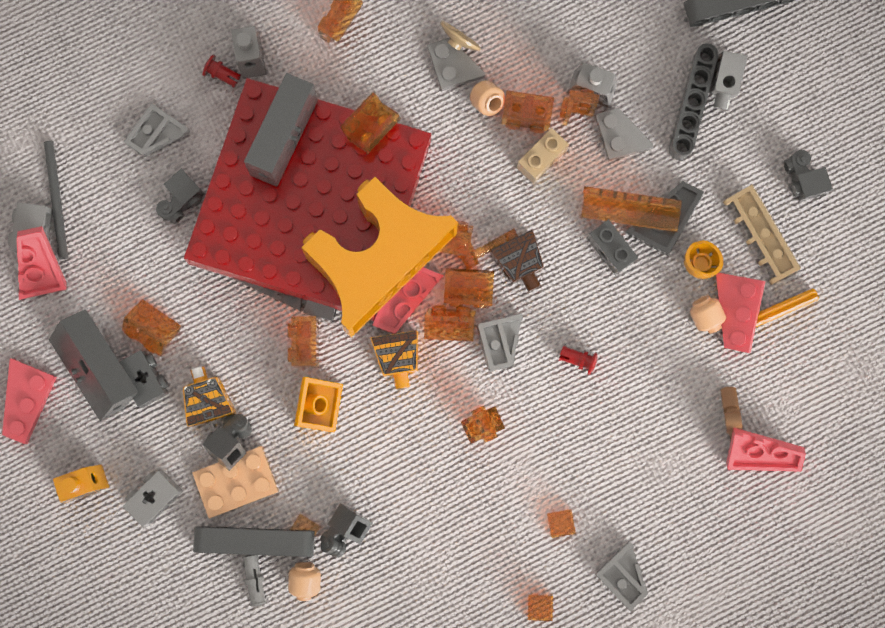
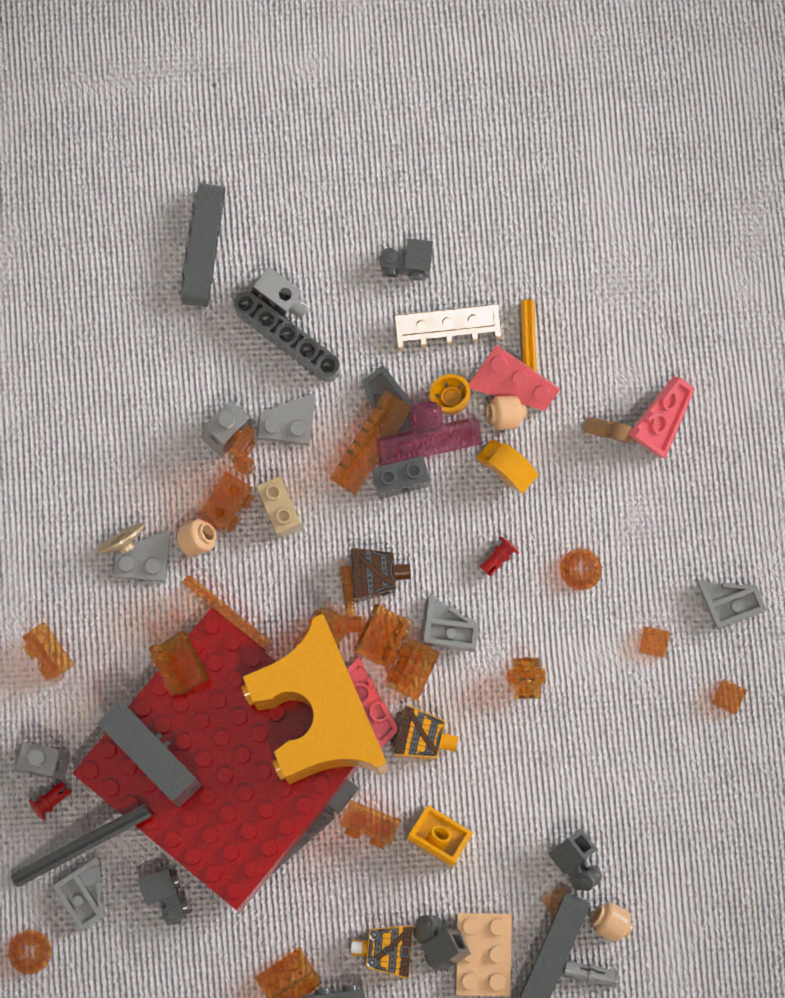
camera: 75 degrees left, 5 degrees down
(94, 119) = (42, 952): none -> clear orange gear
(191, 111) = (81, 845): none -> dark grey axle
(431, 149) = (209, 600): none -> clear orange tile
(602, 423) = (572, 577): none -> clear orange gear
(658, 255) = (428, 435): none -> clear pink plate
(662, 335) = (508, 464): none -> light orange brick

